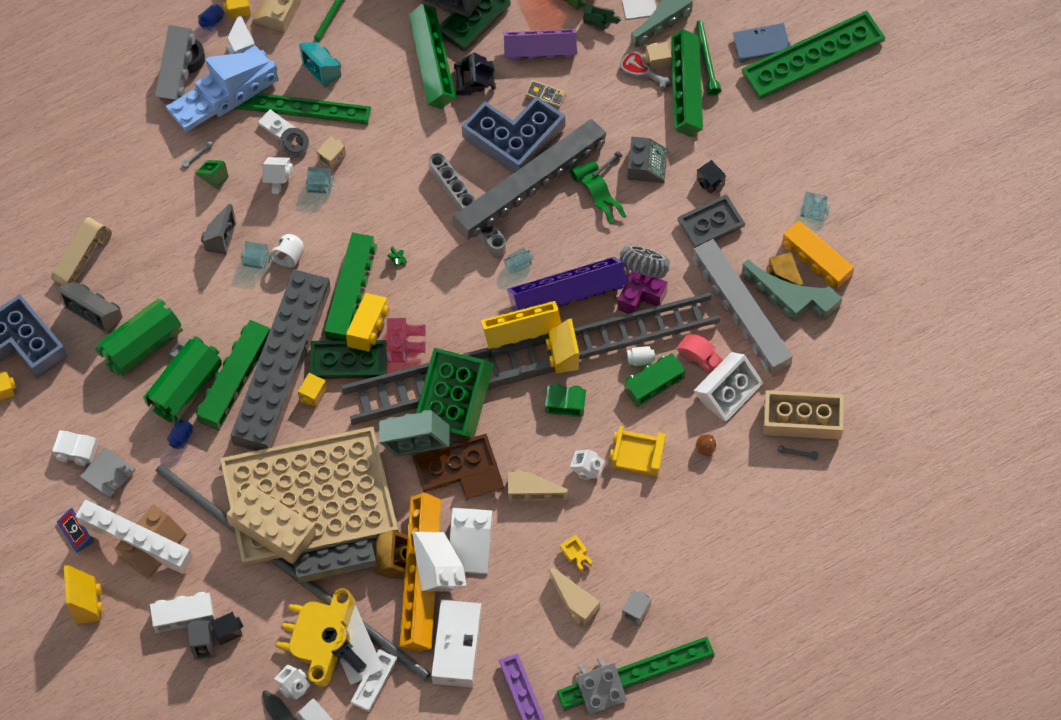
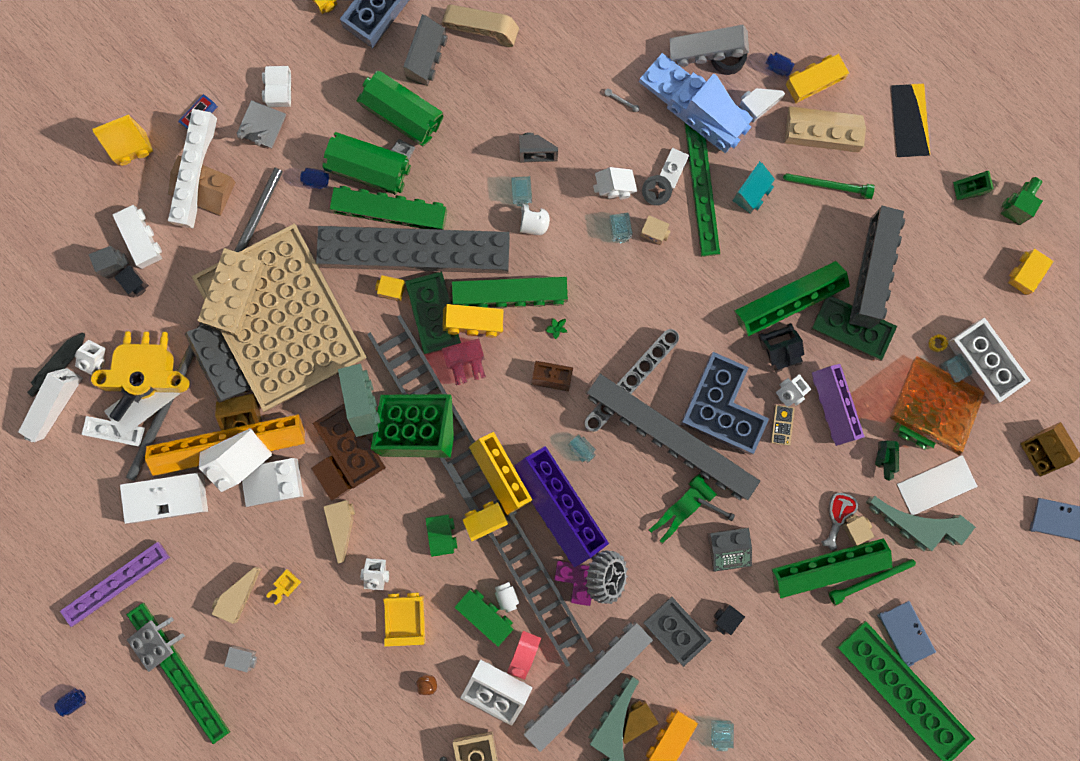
camera: 70 degrees right, 20 degrees up
(213, 172) = (602, 121): green slope -> none
(442, 269) = (552, 376): none -> reddish brown hinge
(517, 75) = (793, 391): none -> white brick

